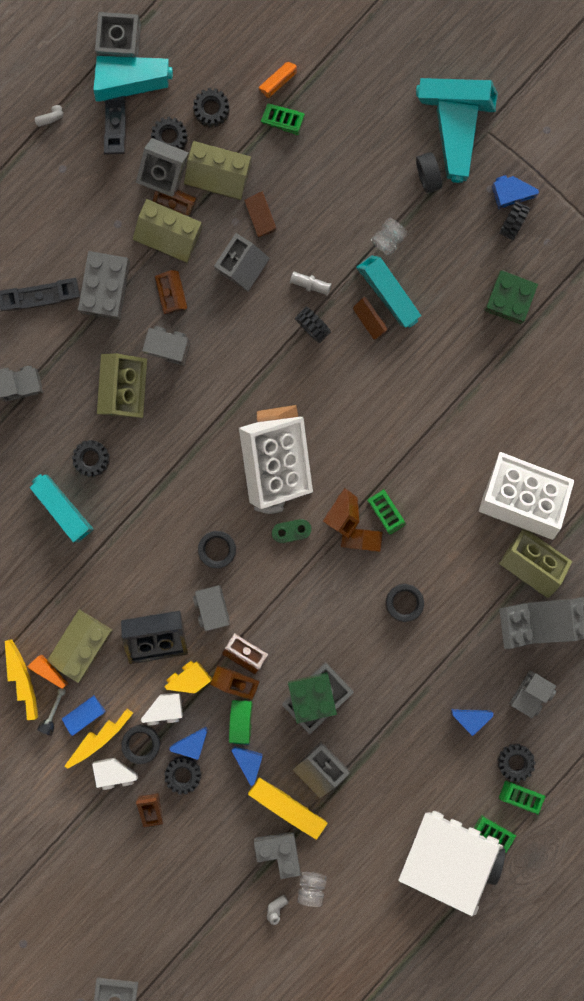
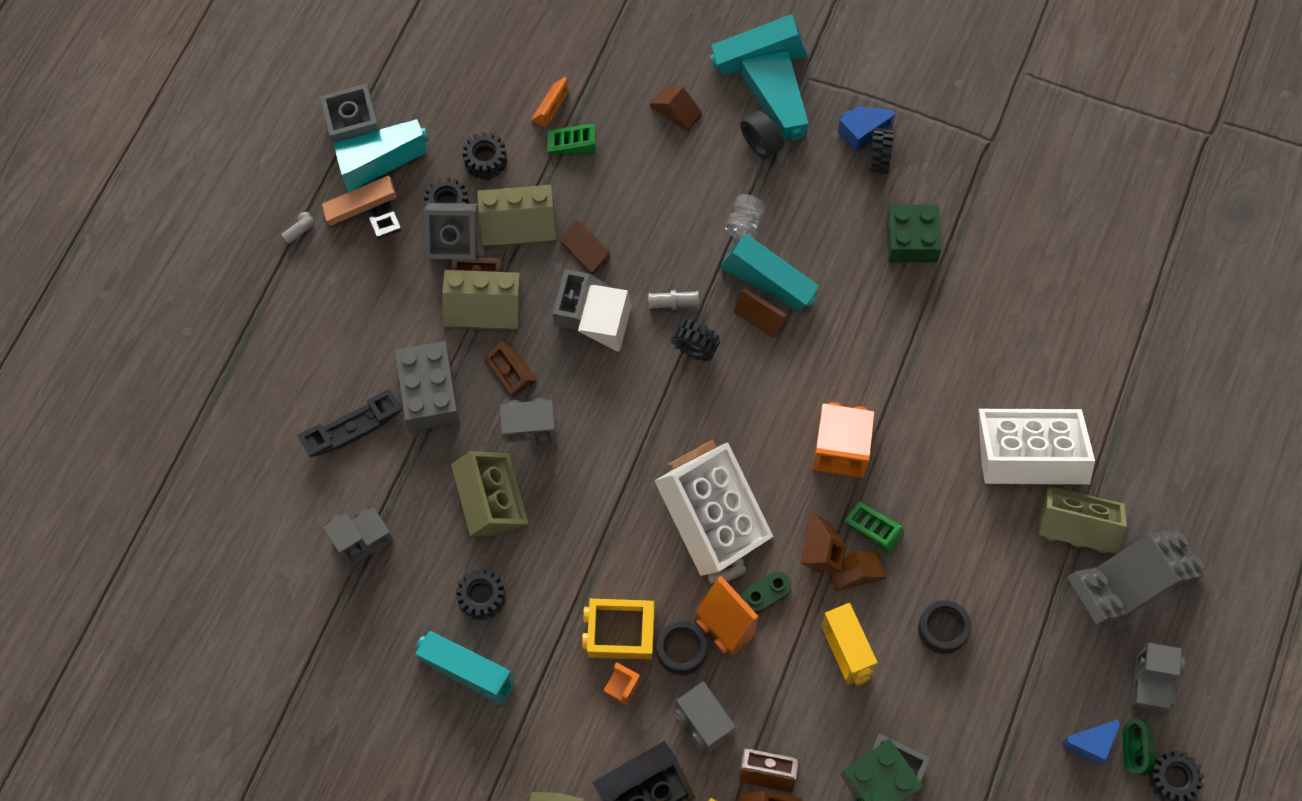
camera: 20 degrees left, 20 degrees down
(102, 112) = (359, 200): none -> nougat tile
(166, 560) = (622, 684): none -> orange panel
(197, 529) = (644, 652): none -> yellow window
(252, 544) = (726, 618): none -> orange slope
(253, 280) = (606, 315): none -> white slope
(331, 594) = (849, 644): none -> yellow window
(374, 119) = (677, 106): none -> reddish brown slope
(391, 440) = (843, 440): none -> slope
(500, 733) = (1137, 748): none -> dark green plate

